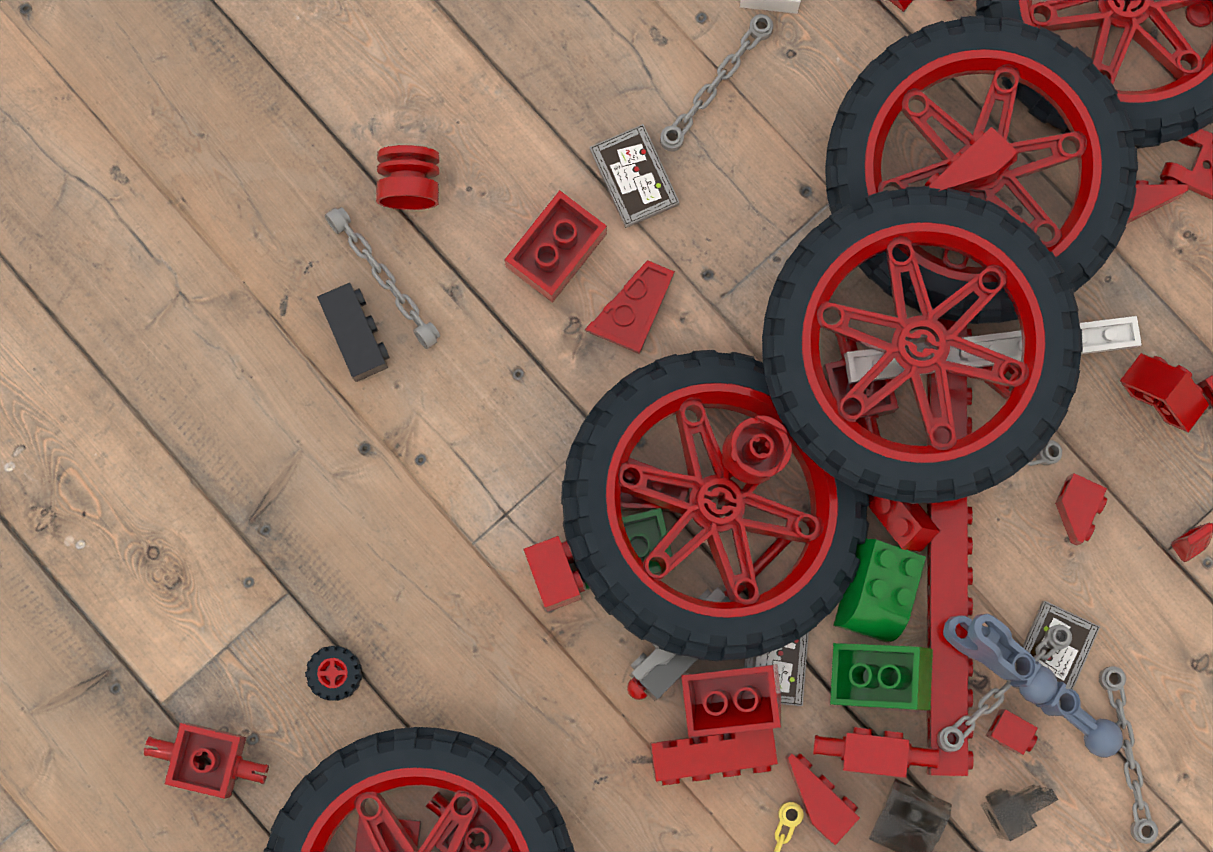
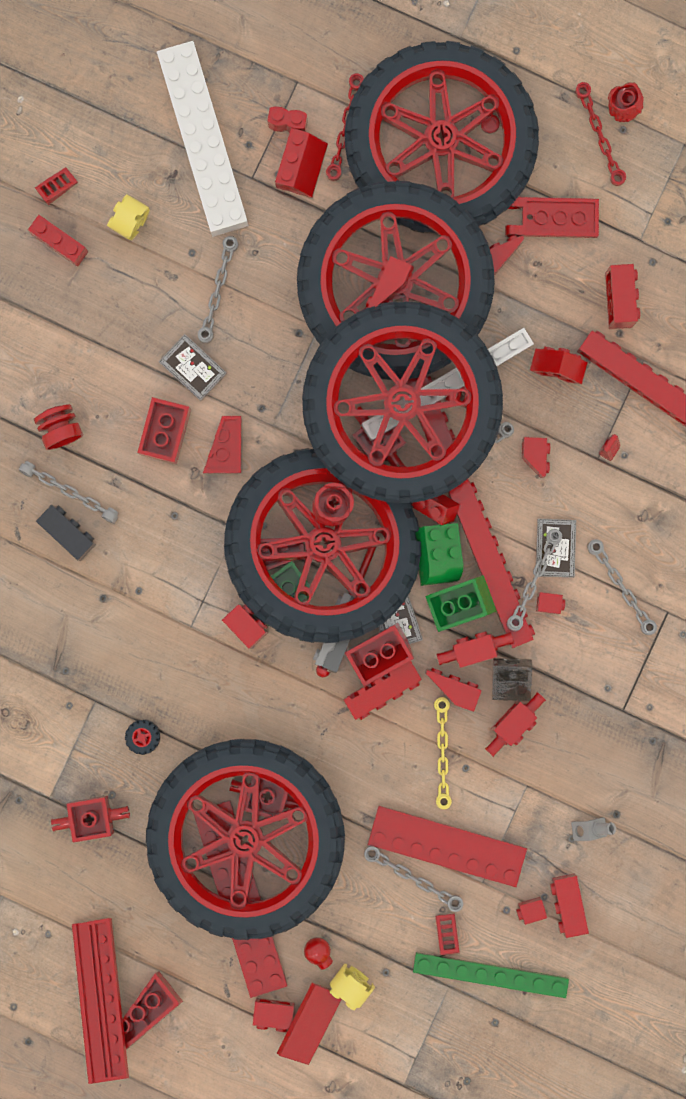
camera: 20 degrees left, 5 degrees up
(1012, 811) = (567, 650): clear smoke brick -> none
(1036, 683) = (550, 569): sand blue piece -> none

